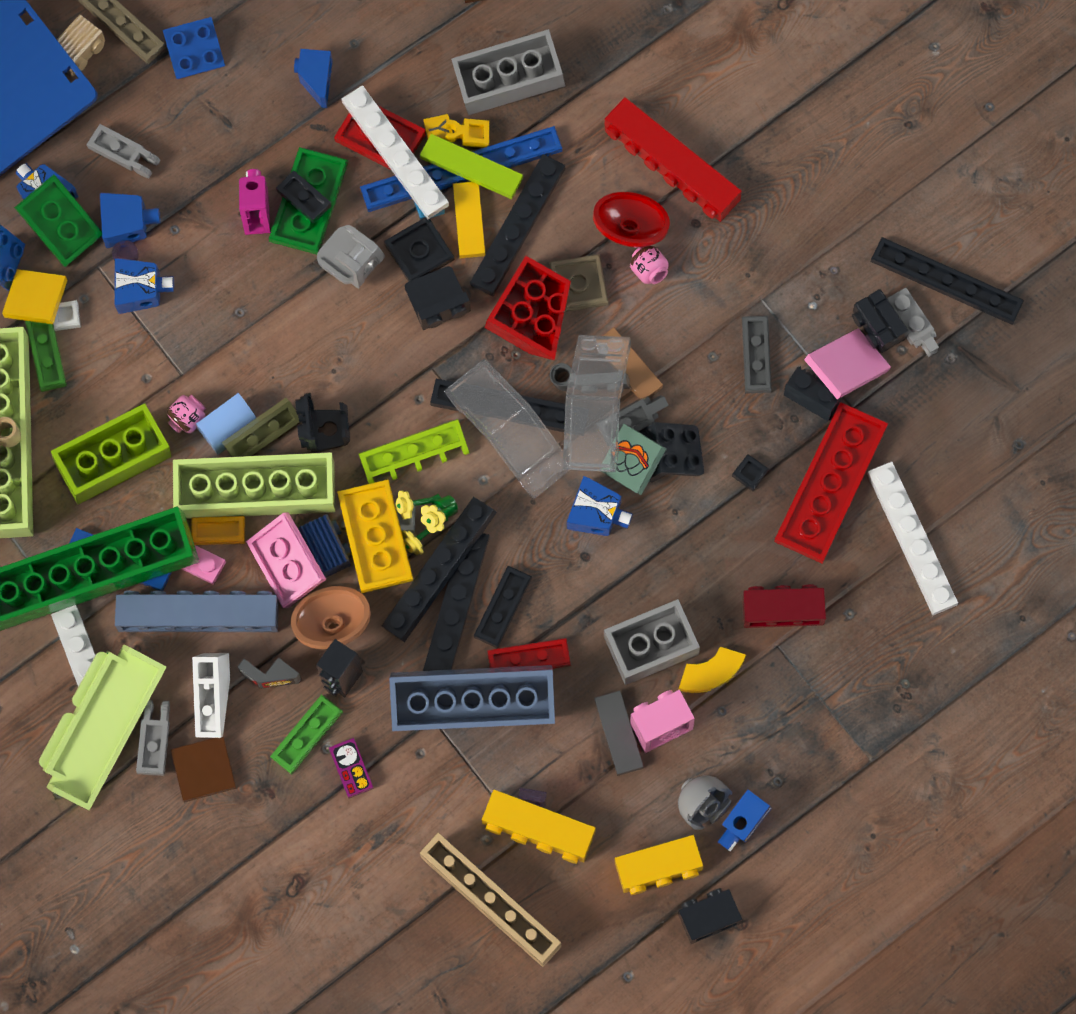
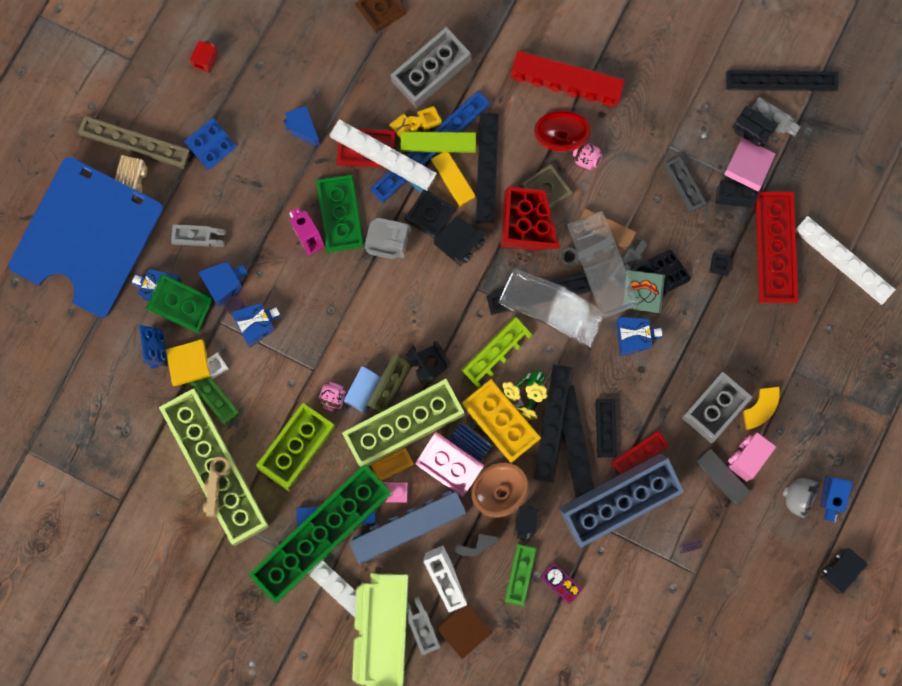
camera: 30 degrees left, 5 degrees up
(303, 196) = (337, 212): black plate -> none
(490, 900) = (700, 629): tan brick -> none
(539, 826) = (704, 564): yellow brick -> none
(659, 865) = (794, 552): yellow brick -> none
(783, 606) = (787, 343): dark red brick -> none

